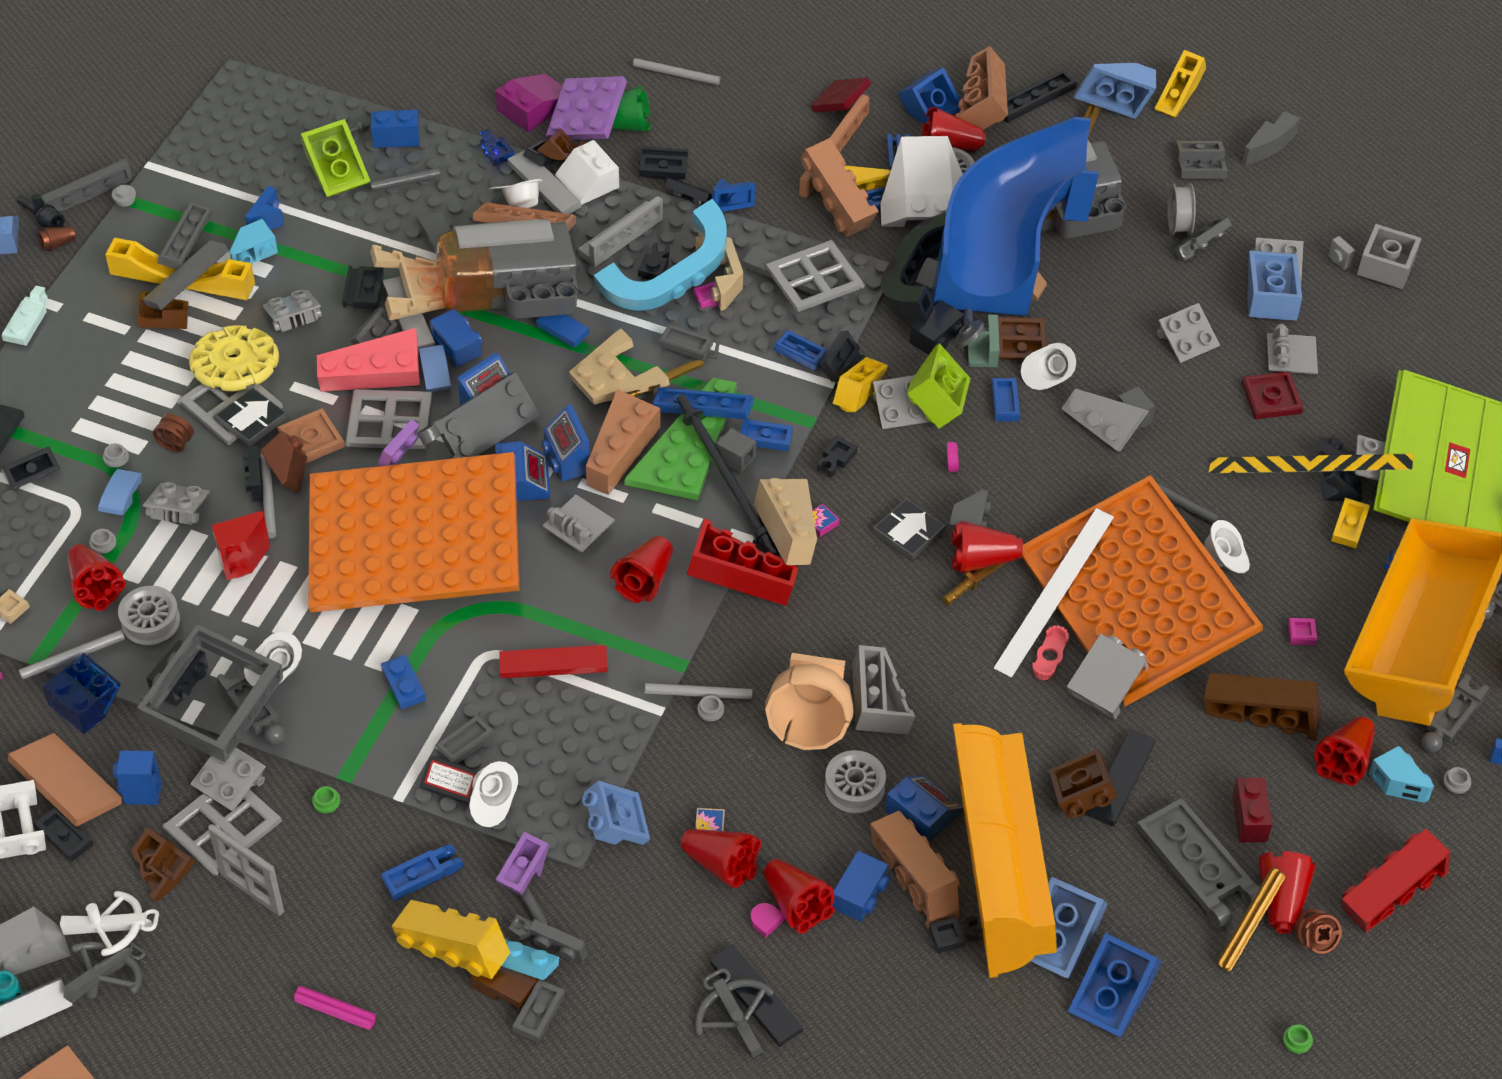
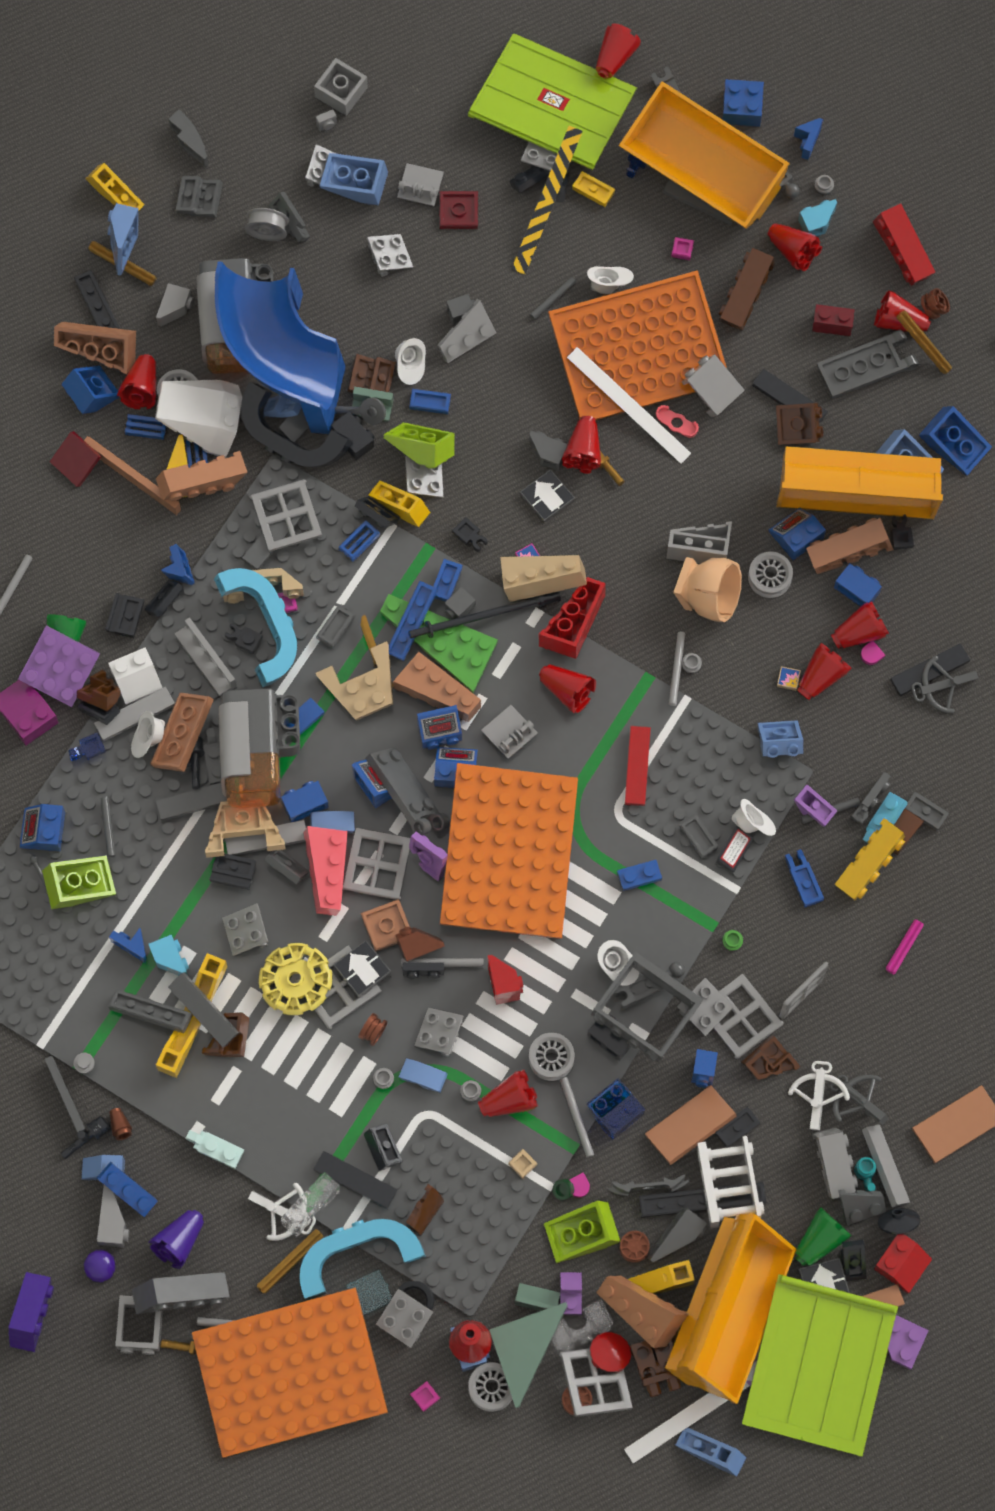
camera: 80 degrees left, 20 degrees up
(953, 459) = (488, 450): dark pink tile -> none

